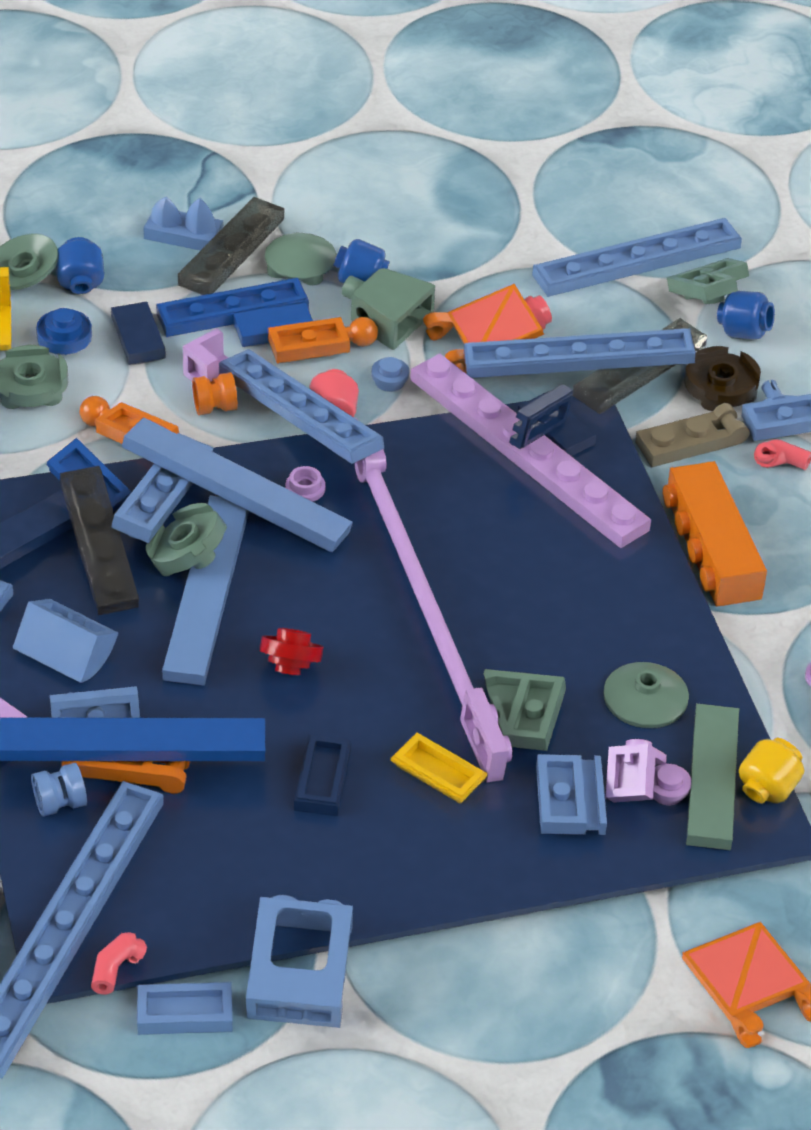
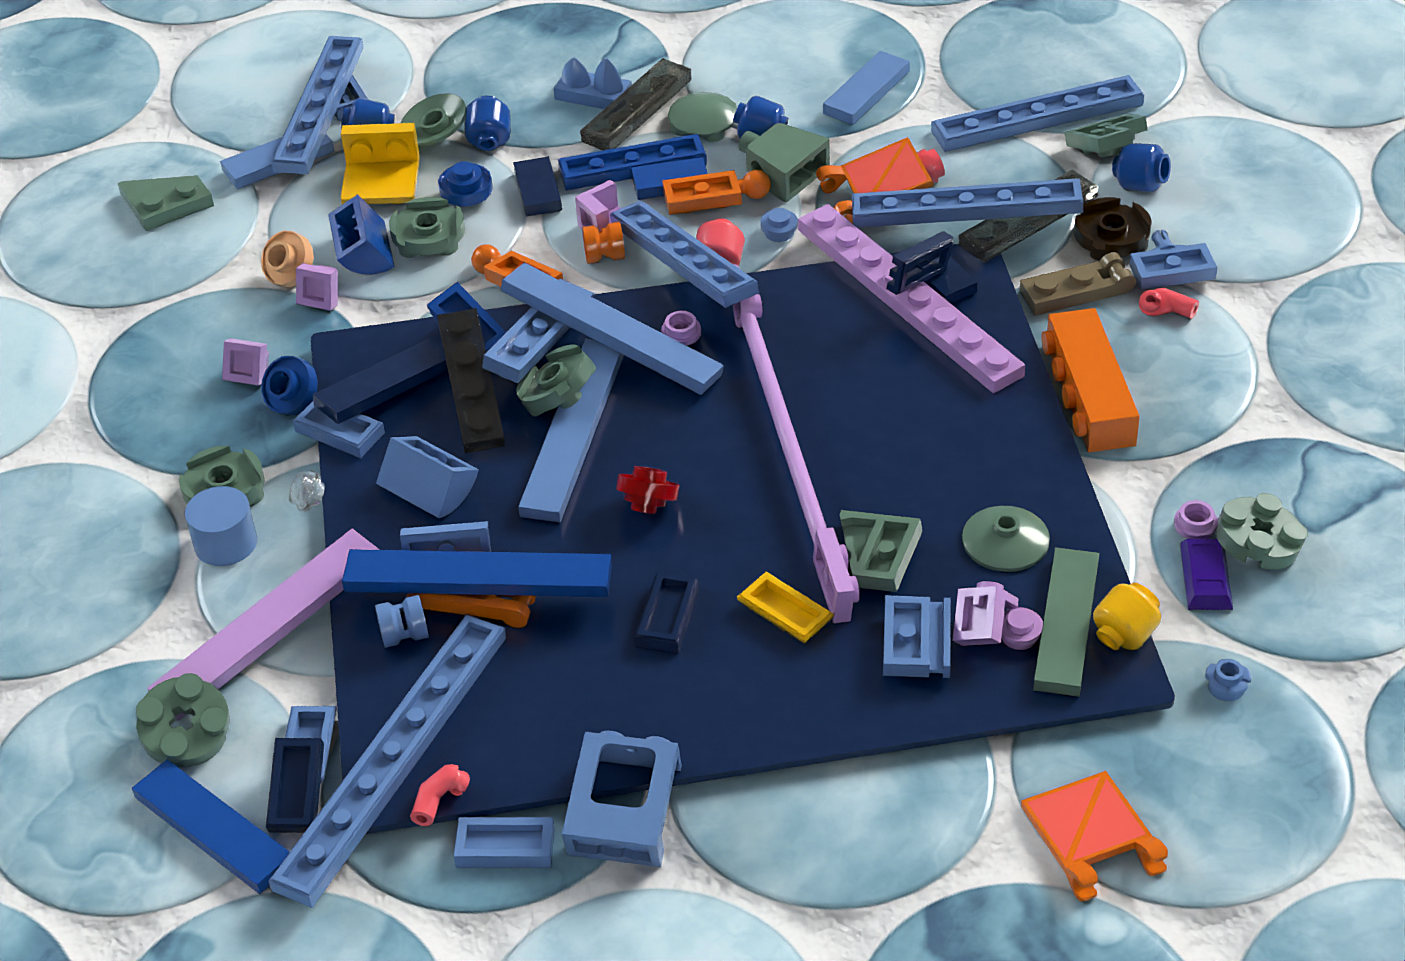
camera: 10 degrees right, 0 degrees up
(463, 228) = (866, 87): none -> medium blue tile

